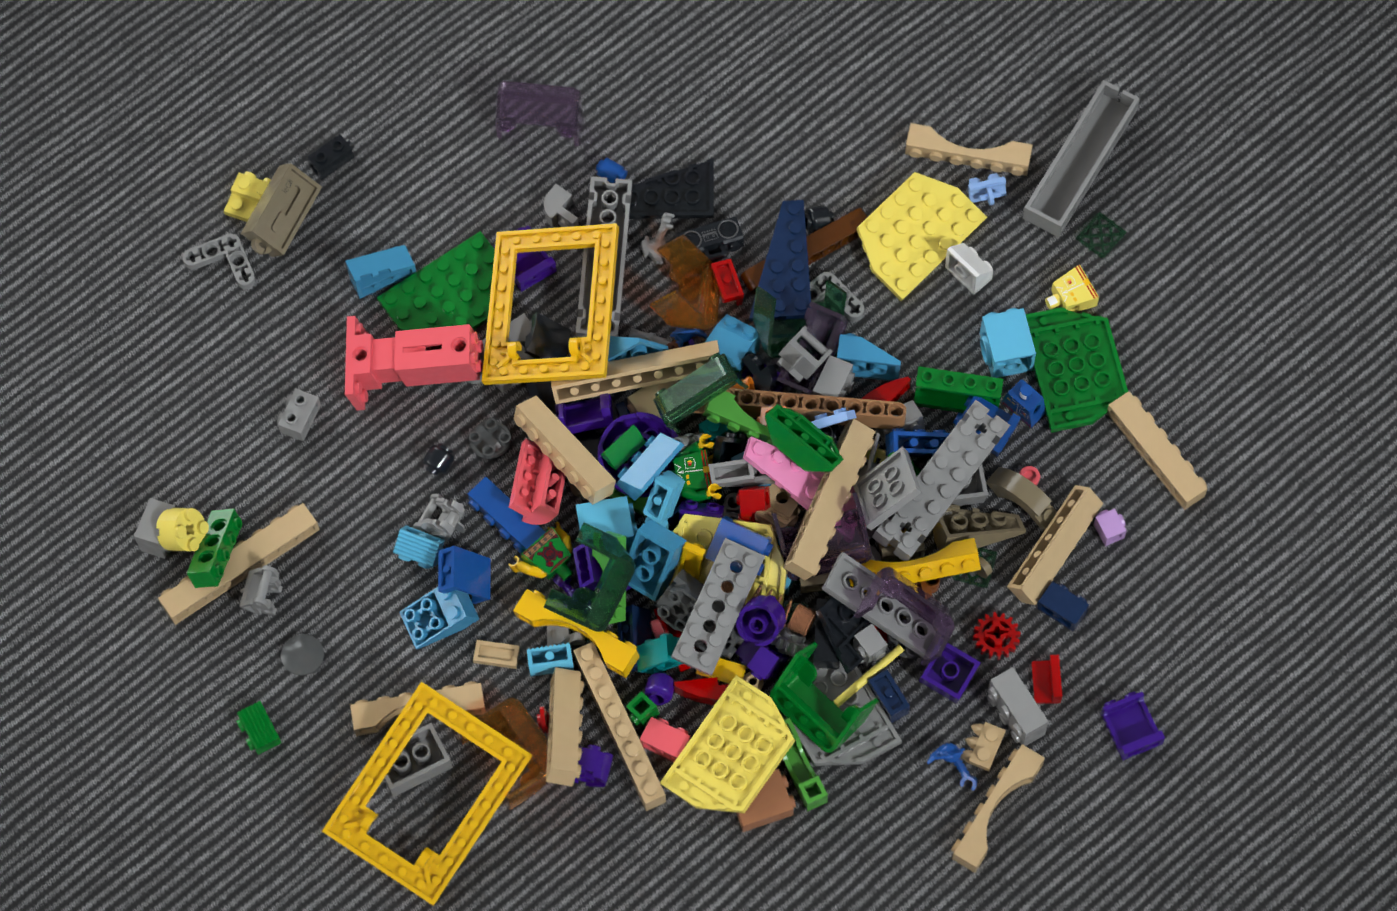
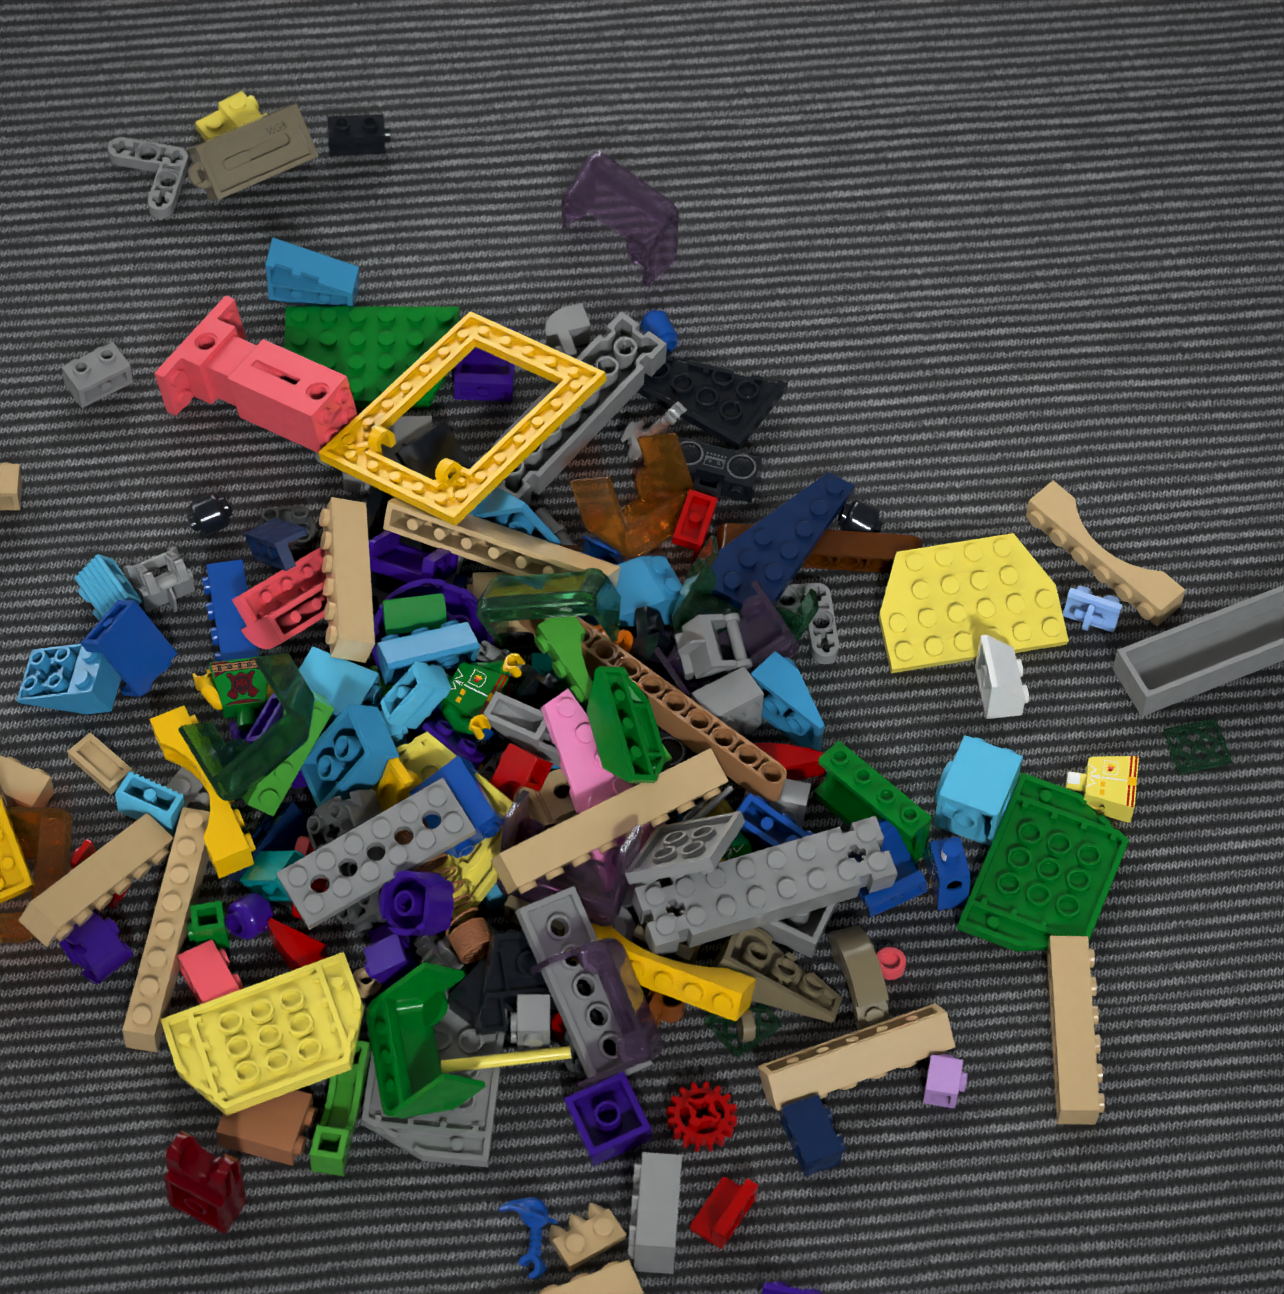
camera: 30 degrees right, 10 degrees down
(499, 453) = (270, 542): none -> dark blue panel
(726, 671) = (340, 939): yellow slope -> none
(763, 860) = (203, 1183): none -> dark red brick
(840, 415) = (678, 732): light blue plate -> none
(889, 695) = (512, 1101): dark blue panel -> none

